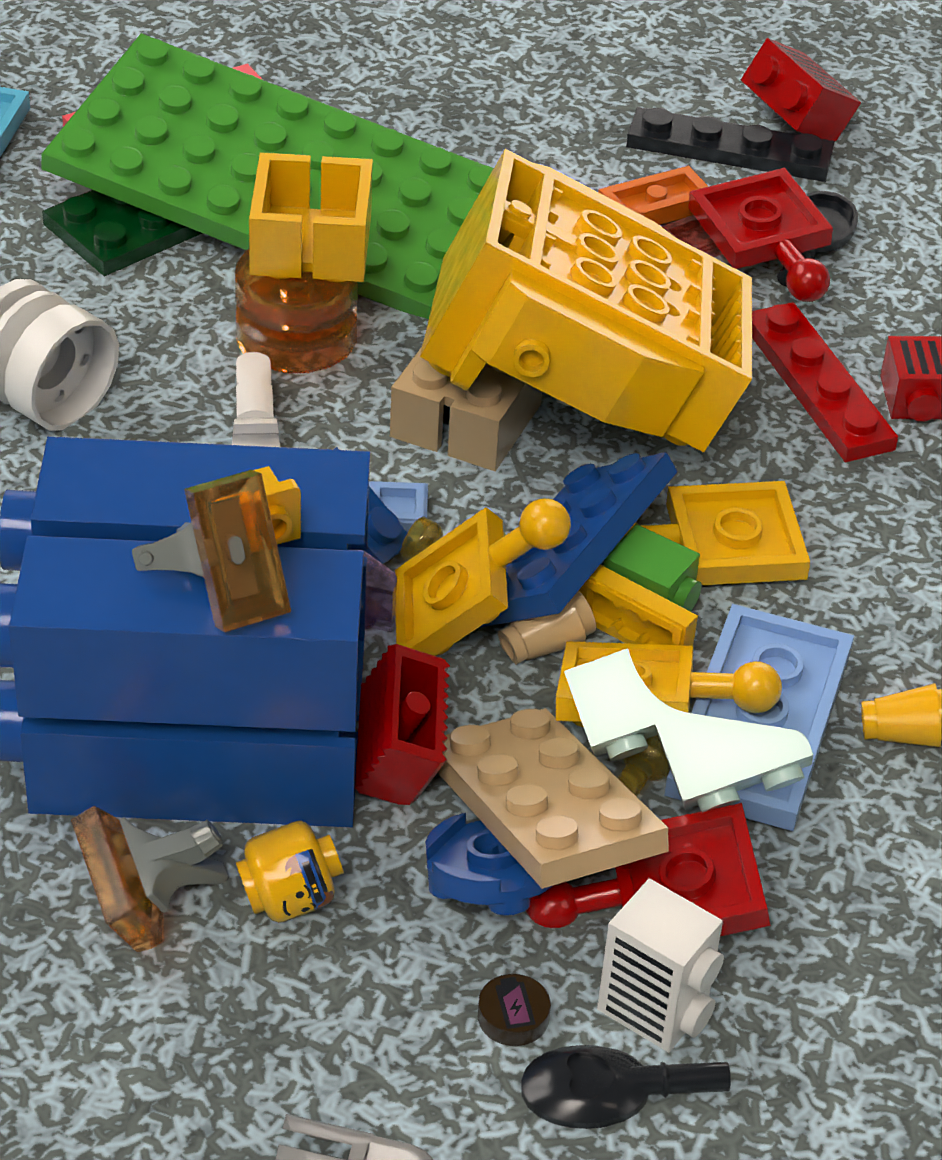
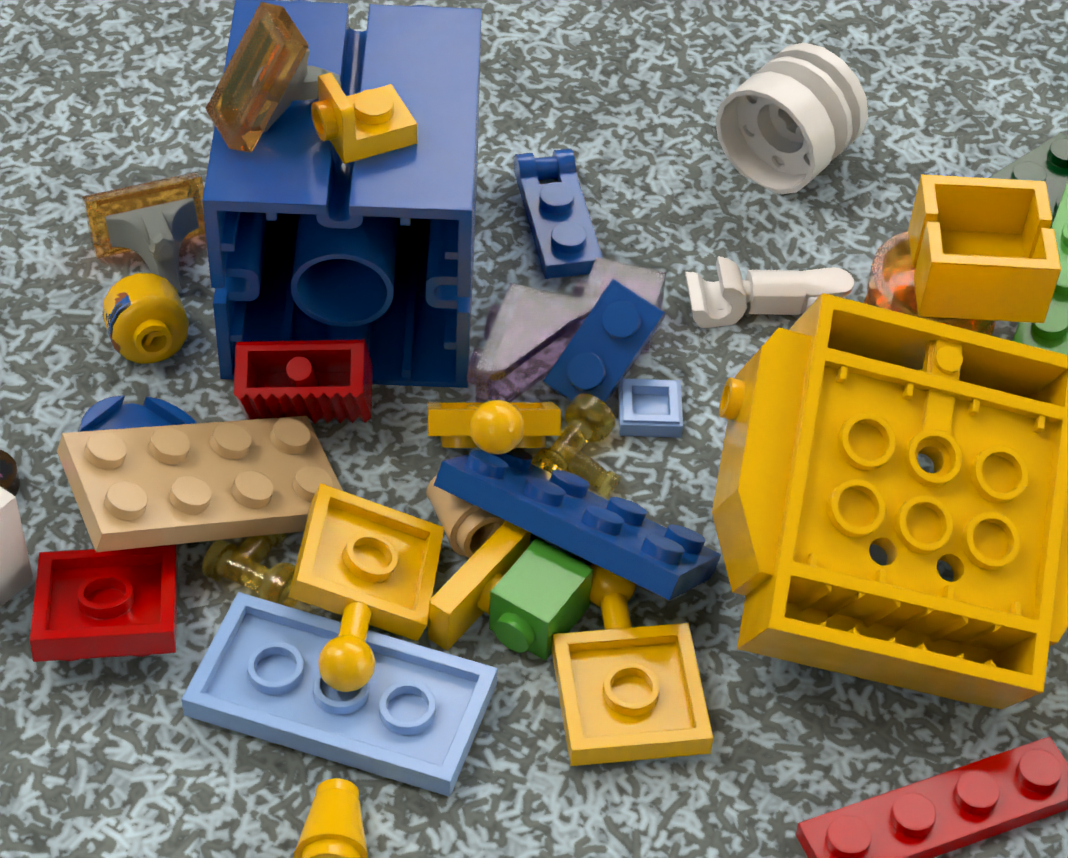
camera: 90 degrees right, 5 degrees up
(705, 753) = (230, 582): light aqua arch -> none

